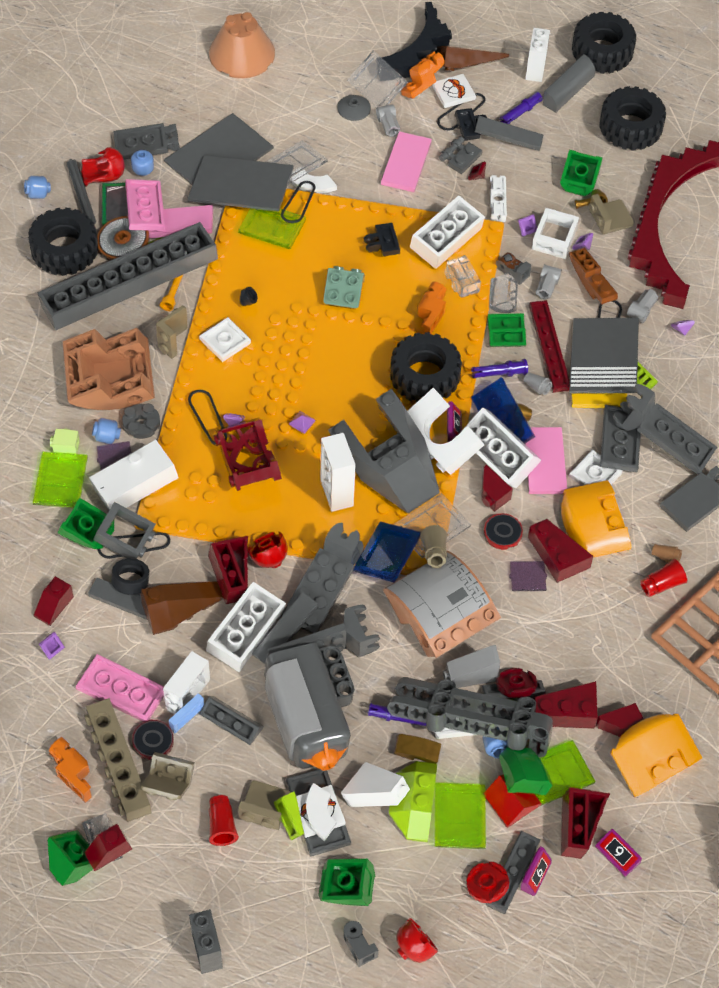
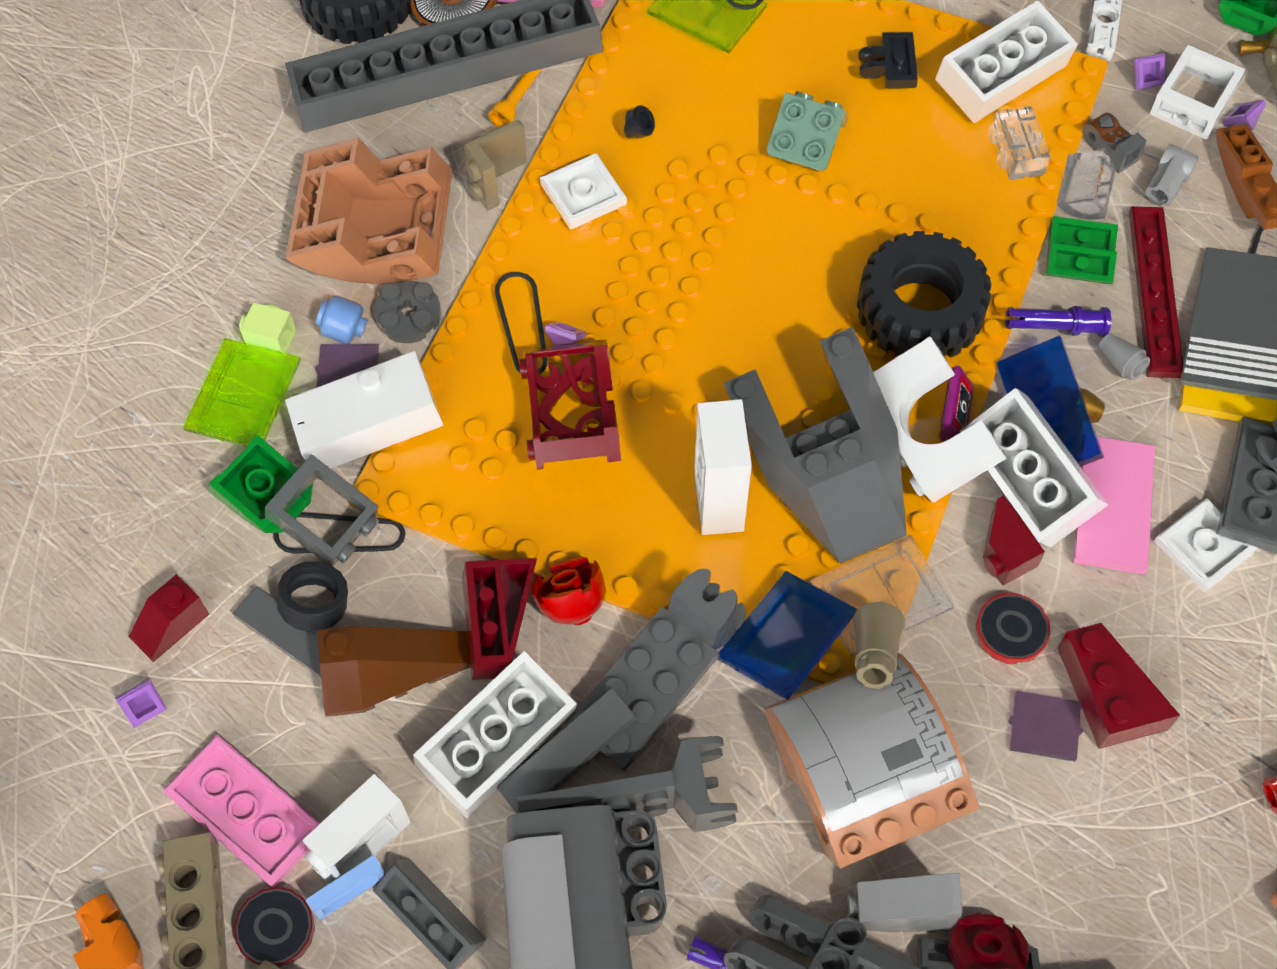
camera: 15 degrees right, 5 degrees up
(302, 422) = (684, 359): medium lavender slope -> none
(432, 306) = (955, 188): orange plate -> none
(594, 519) = (1192, 636): light orange slope -> none

